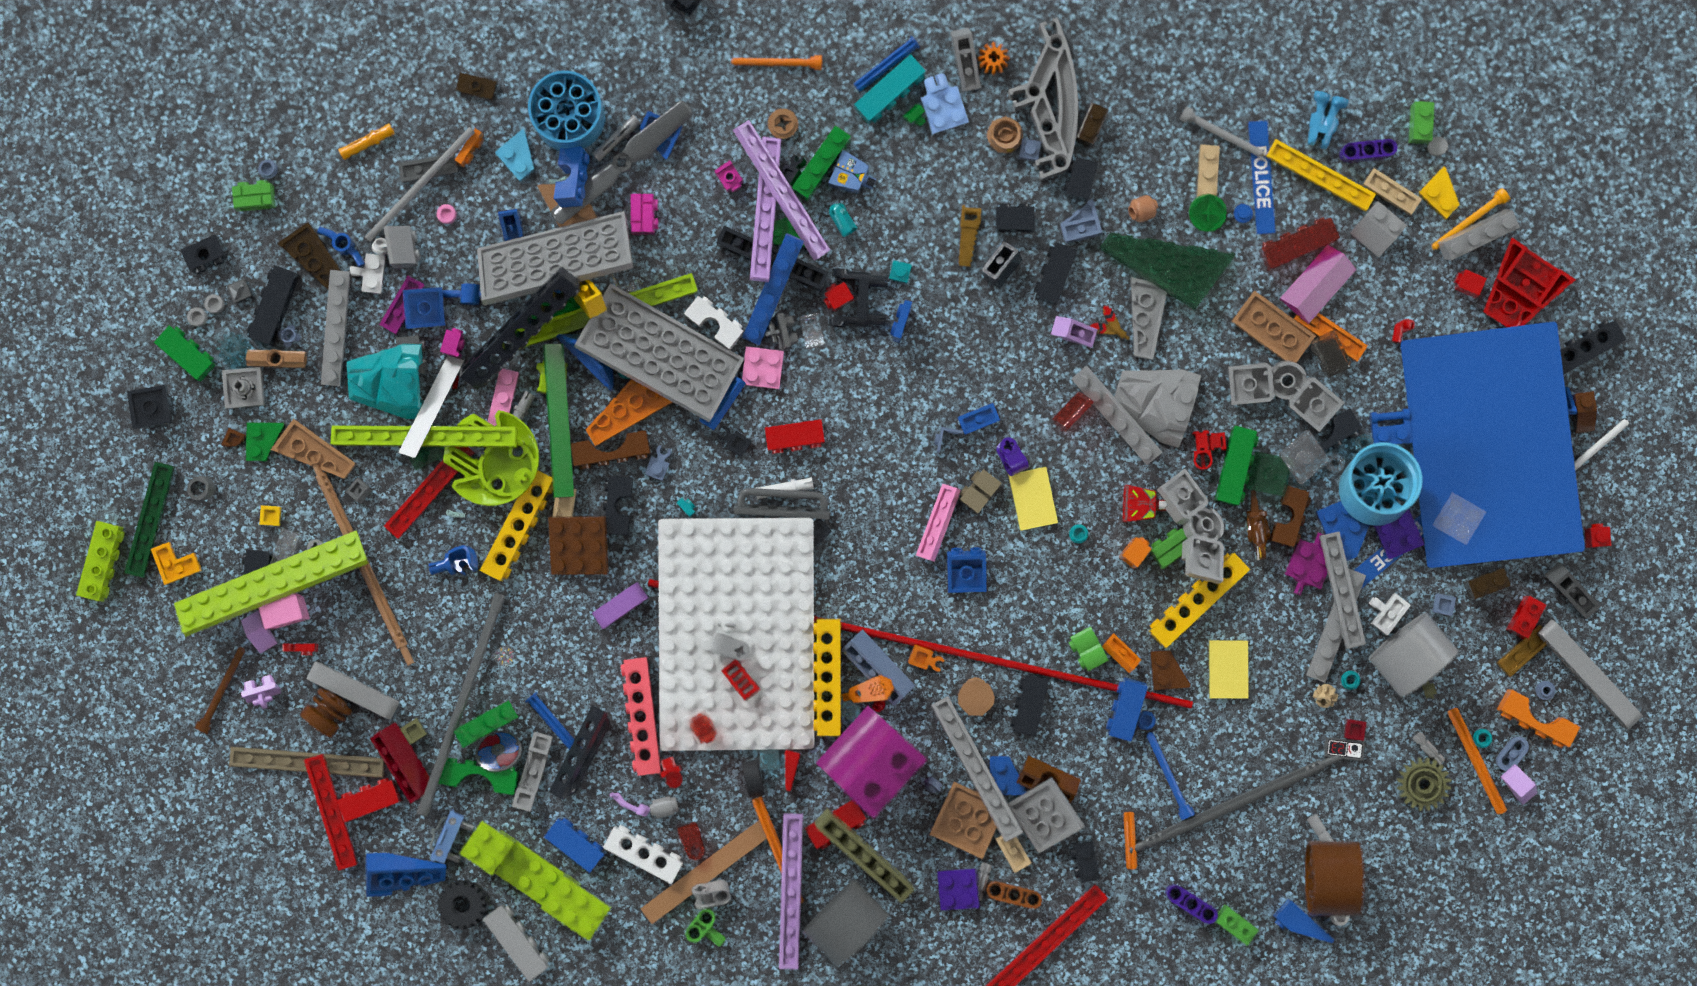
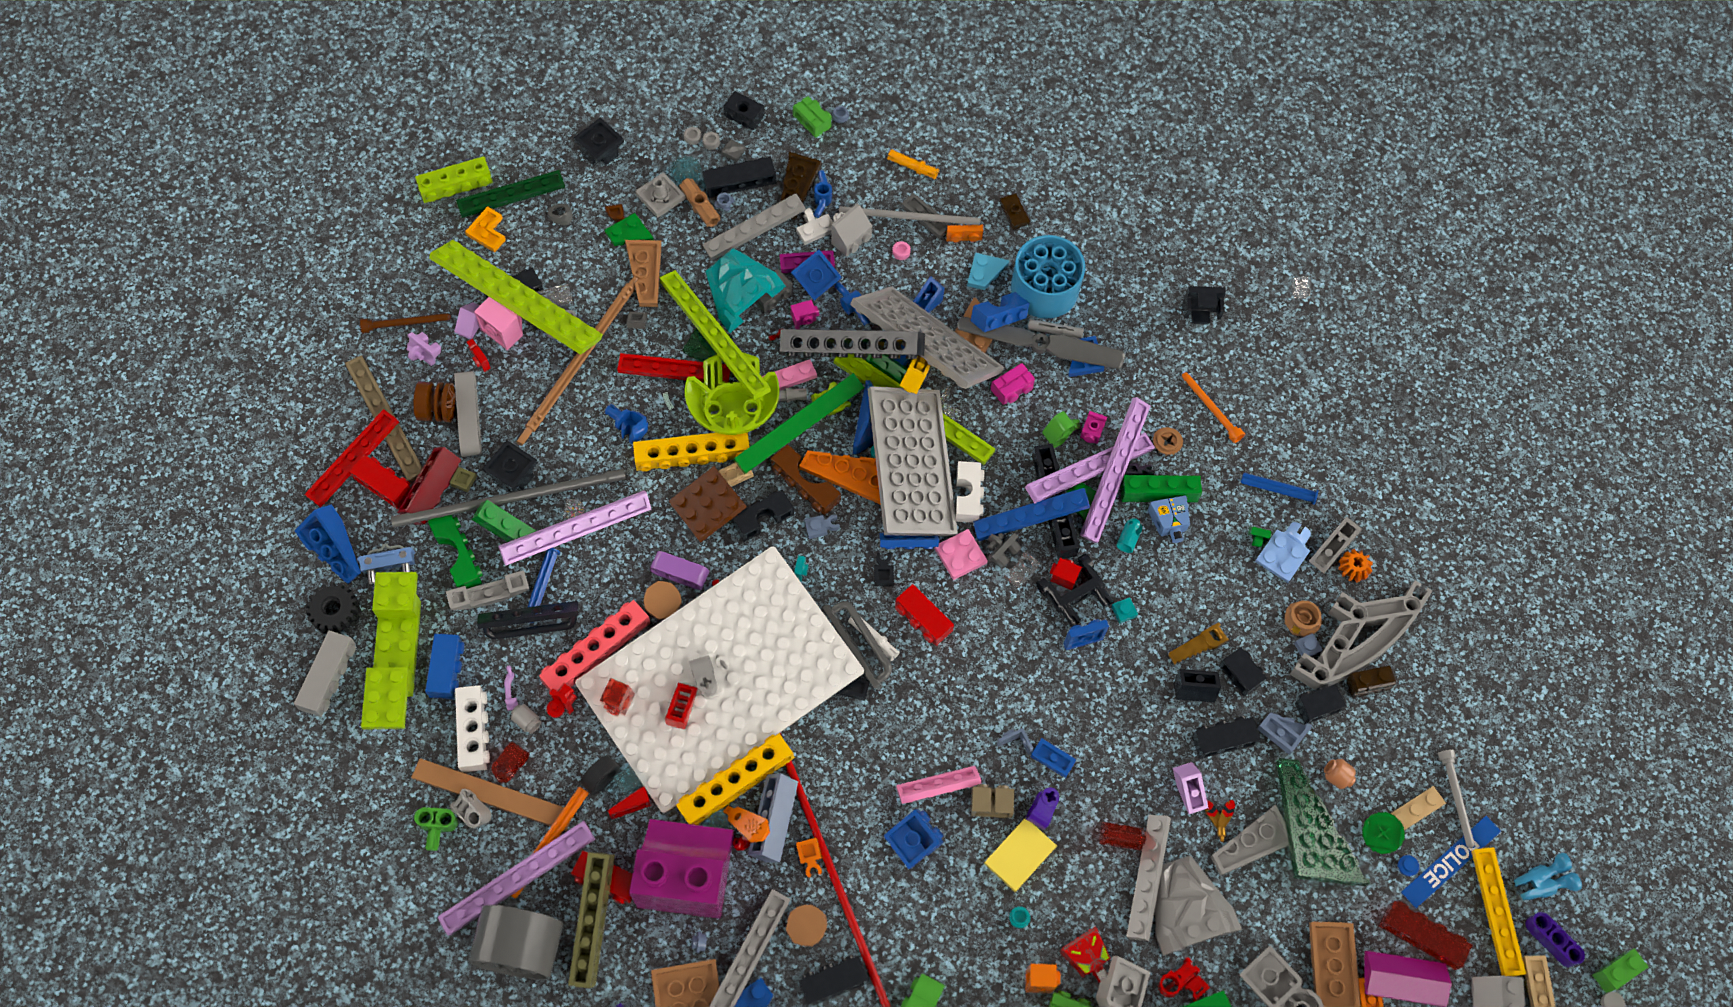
camera: 55 degrees right, 20 degrees down
(185, 352) = (658, 142): green brick -> none
(270, 515) = (572, 271): yellow plate -> none
(431, 406) = (740, 325): white sticker -> none
(432, 685) = (511, 467): none -> black panel
(498, 751) = (484, 553): shield -> none
(526, 667) = (574, 527): none -> lavender tile
(638, 636) = (662, 600): none -> medium nougat hat
(713, 205) = (1060, 429): none -> bright green beam
(890, 89) = (1262, 502): teal brick -> none

